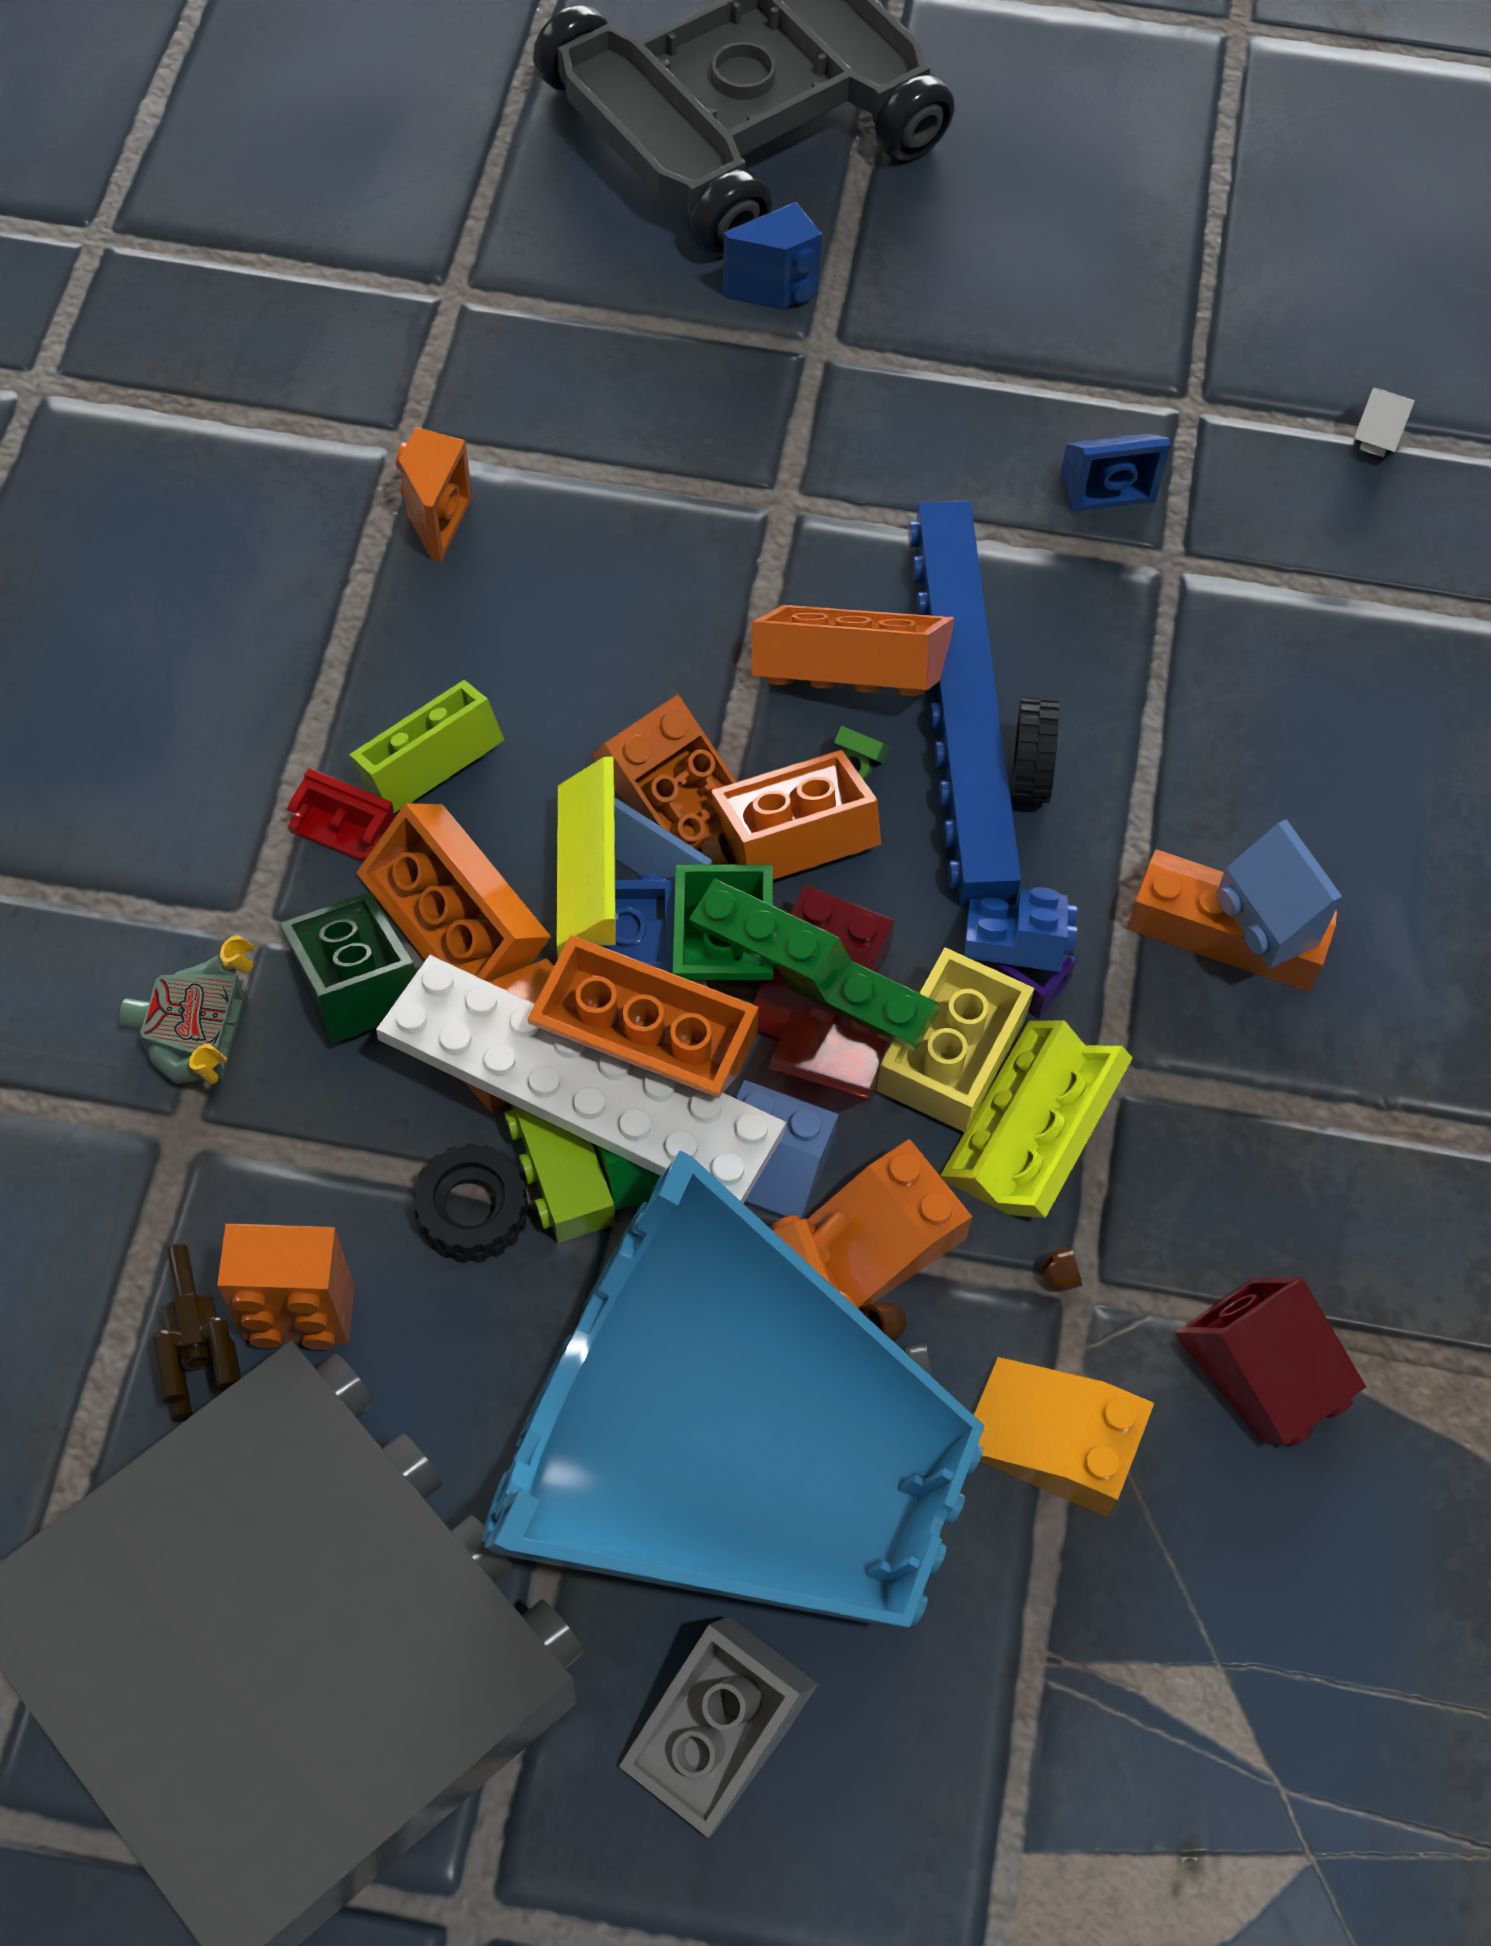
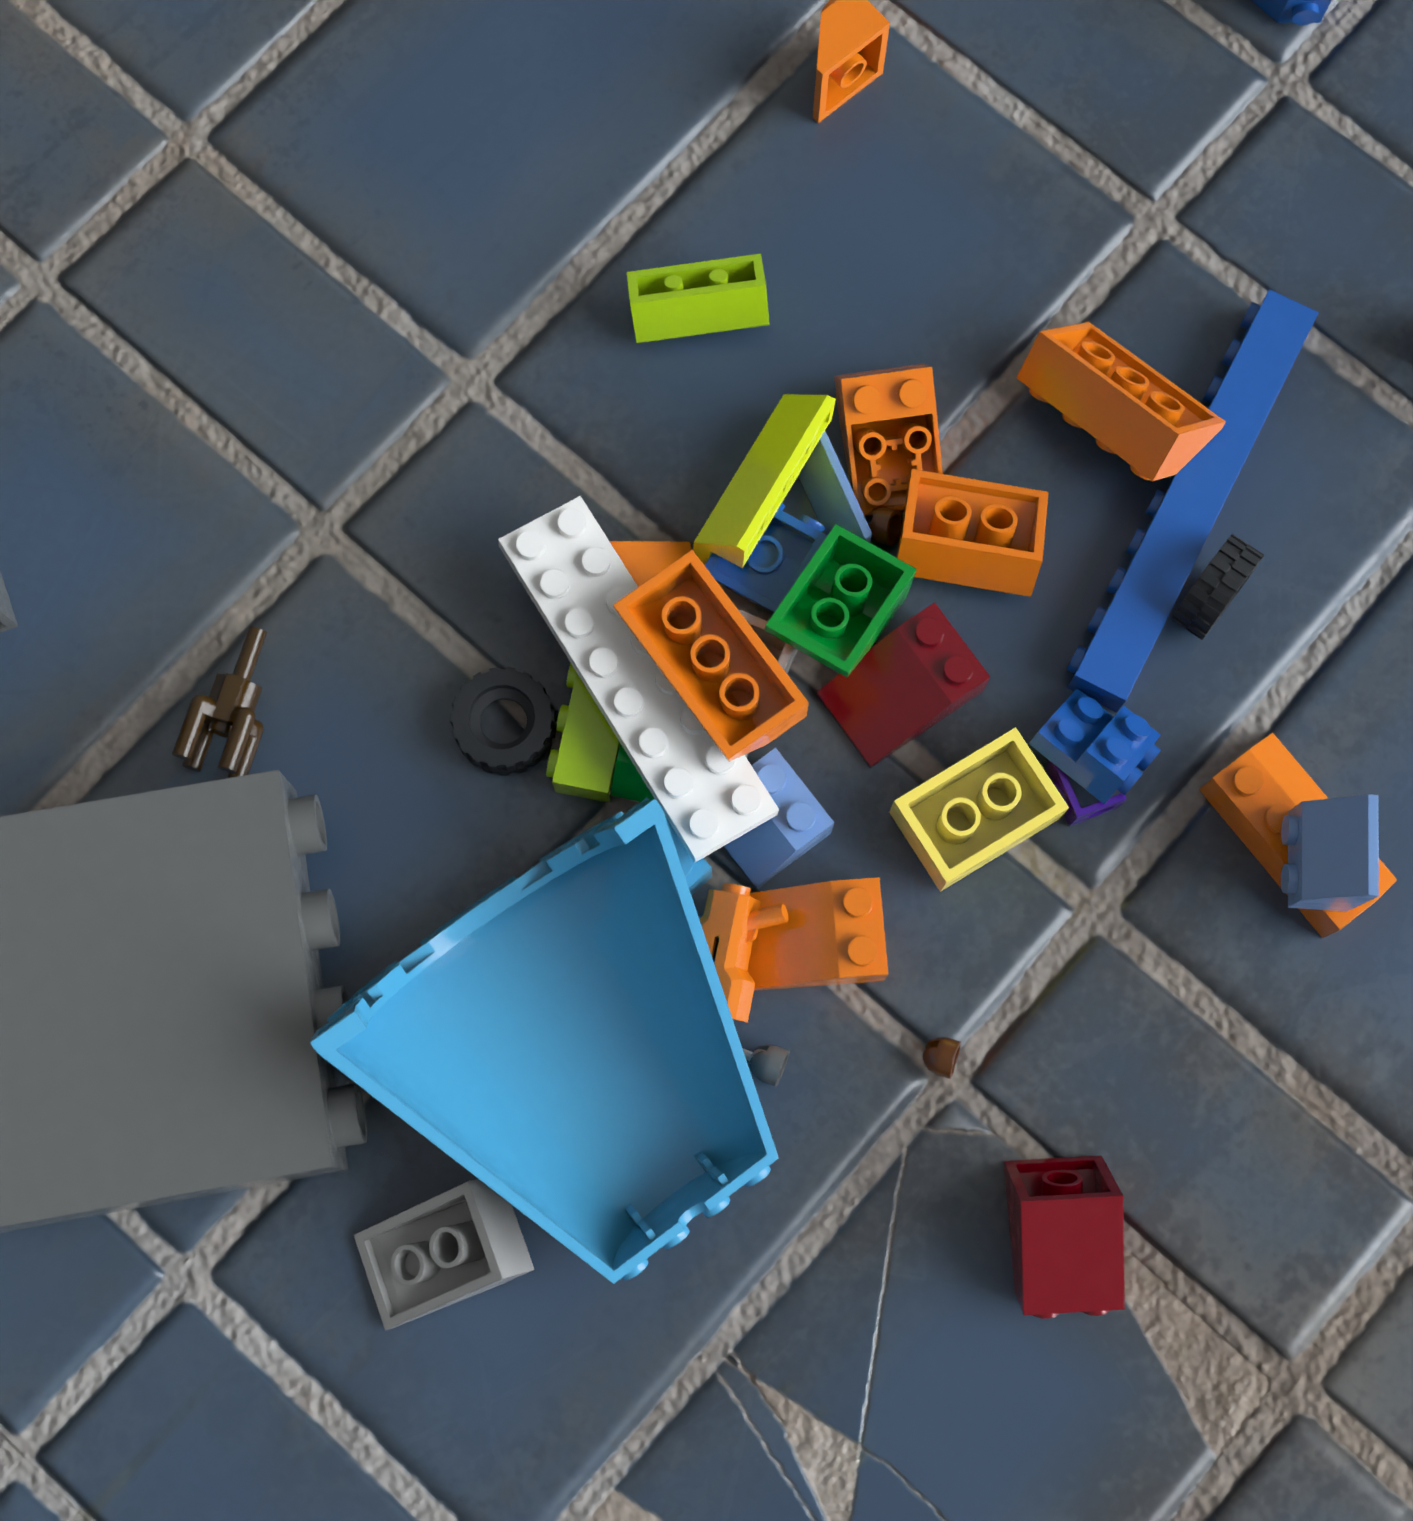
camera: 35 degrees right, 15 degrees up
(193, 1015) = (376, 439): sand green torso -> none
(287, 1285) = (309, 716): orange brick -> none
(338, 815) = (594, 323): red hinge -> none
(349, 964) = (525, 459): dark green slope -> none
(450, 895) = (640, 448): orange slope -> none
(815, 964) = (889, 684): green bracket -> none
(830, 1053) = (861, 765): clear red slope -> none
(863, 748) = (1072, 497): bright green tile -> none
(887, 1318) = (767, 1014): reddish brown hinge -> none
(1036, 1119) = (1006, 915): neon yellow slope -> none
(1061, 1432) = (850, 1186): light orange slope -> none

